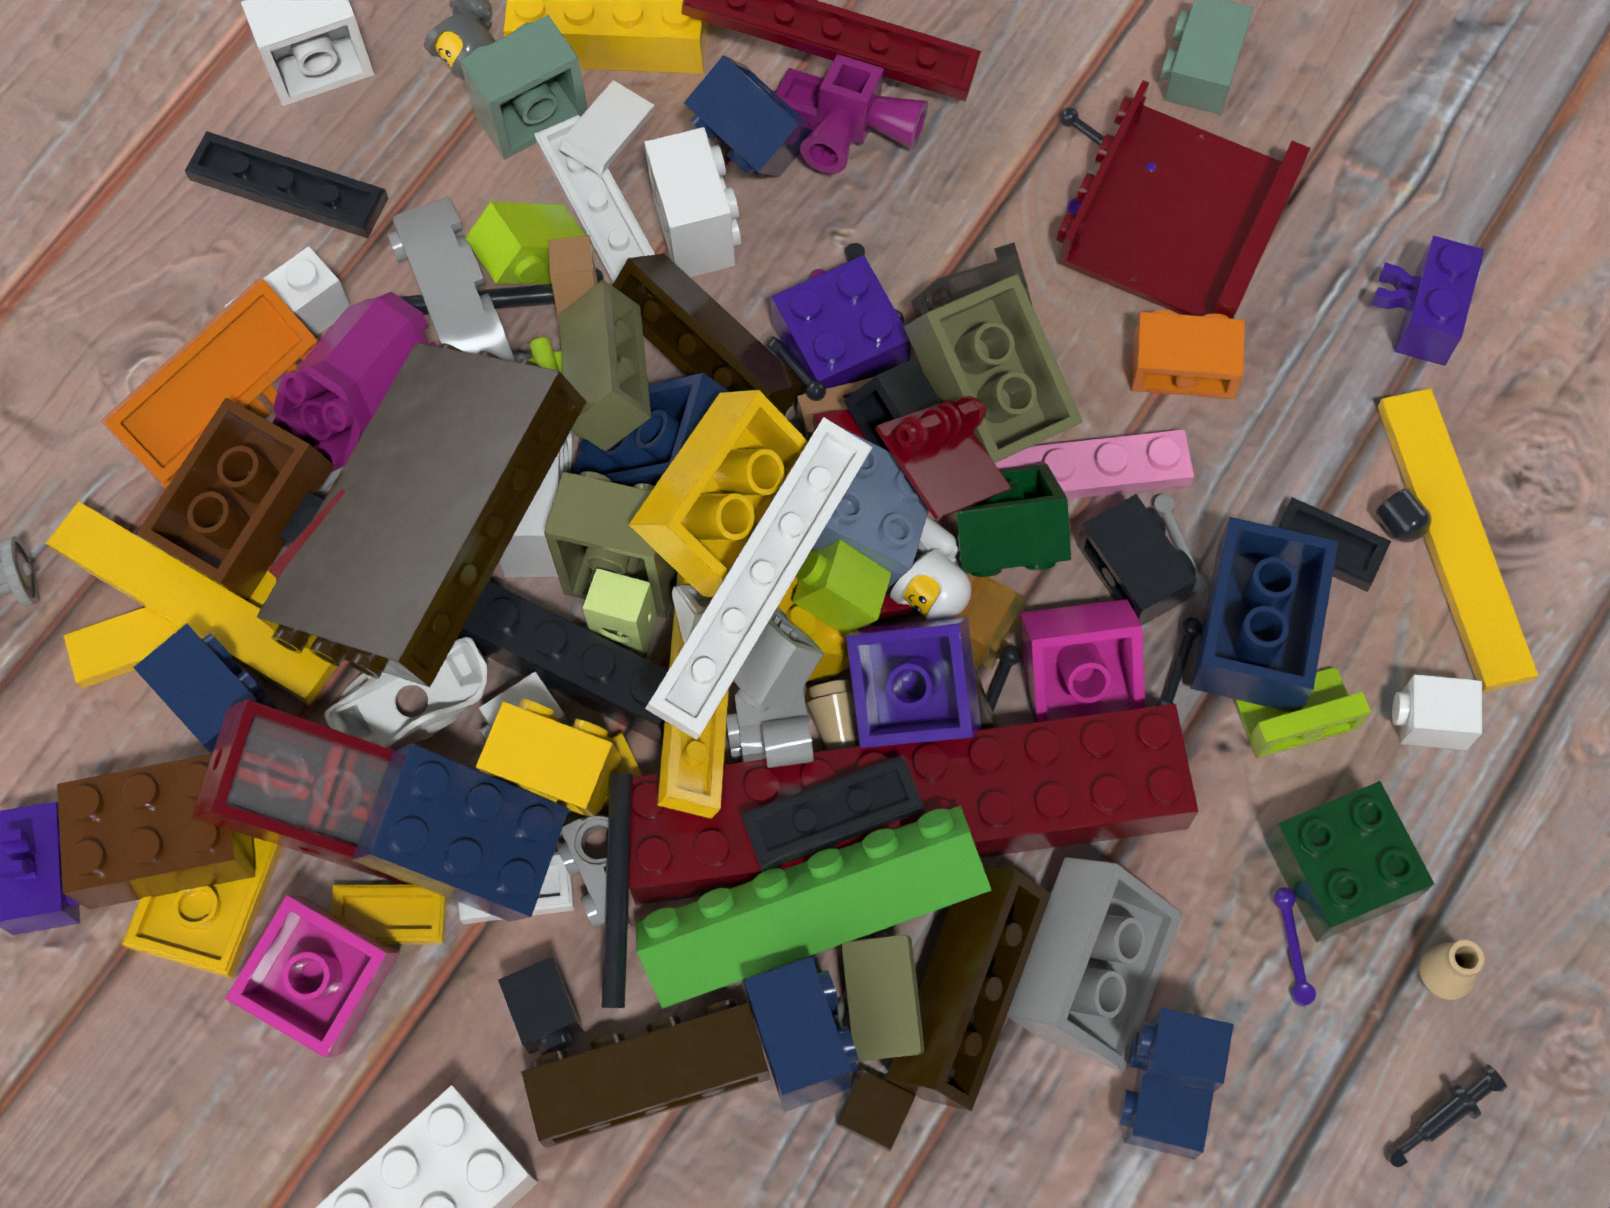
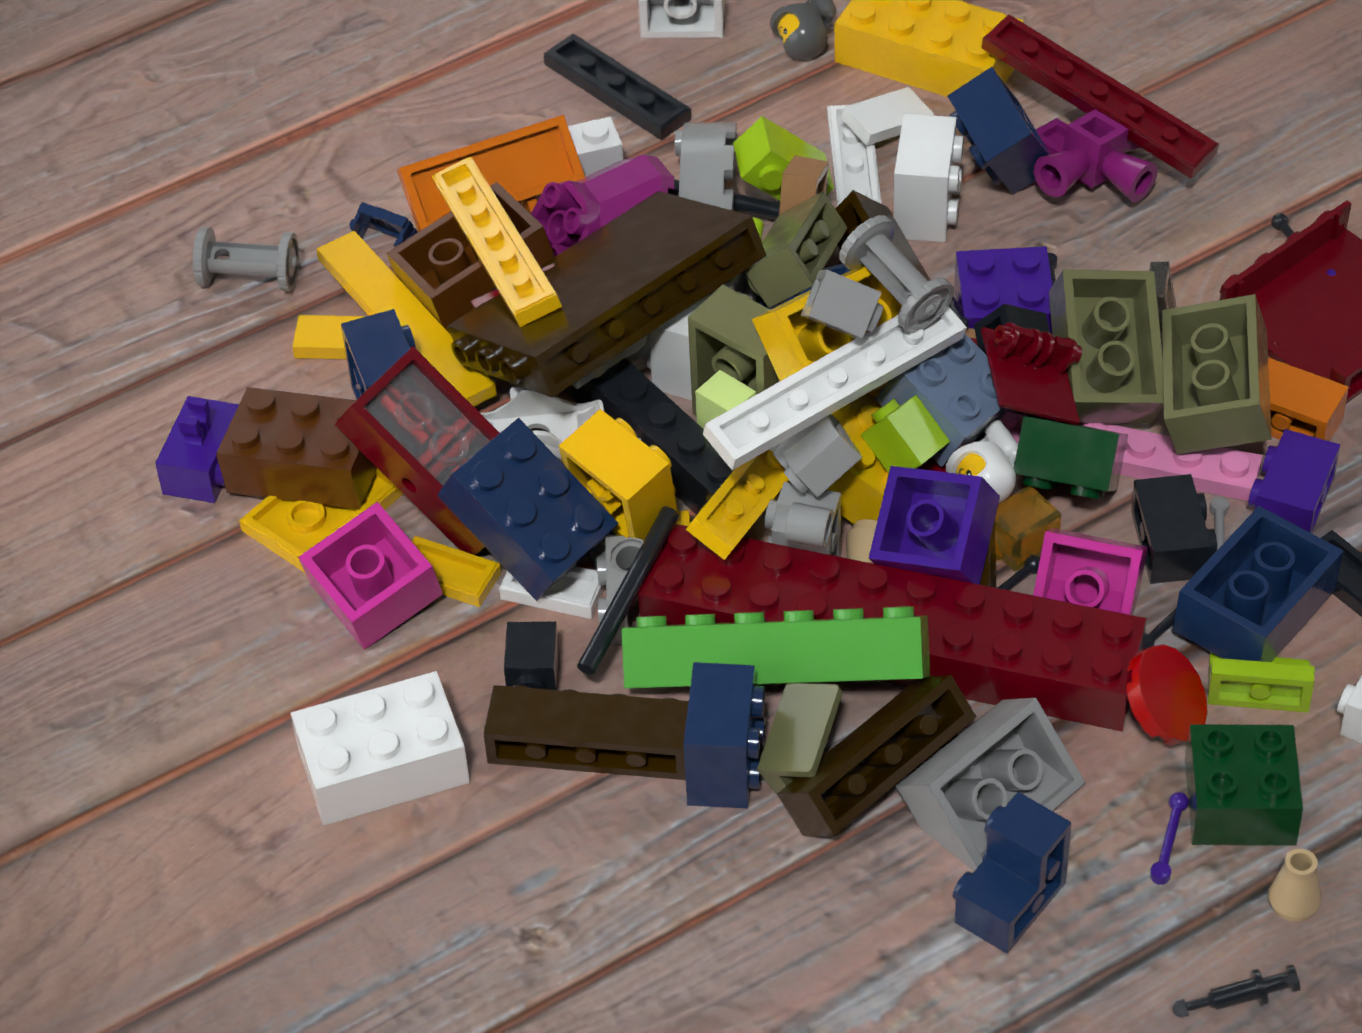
camera: 25 degrees right, 20 degrees down
(81, 471) = (382, 221): none -> dark blue piece
(268, 492) = (496, 242): none -> yellow tile
(524, 85) = (832, 63): sand green brick -> none
(740, 492) = (843, 304): none -> light grey brick
(779, 422) = (872, 247): none -> light grey hose
(832, 813) = (820, 588): black tile -> none
(876, 1111) = (760, 824): dark brown tile -> none
(1119, 366) = (1216, 374): none -> olive brick
(1231, 785) = (1166, 693): none -> red tile
(1235, 457) = (1296, 478): none -> dark purple brick

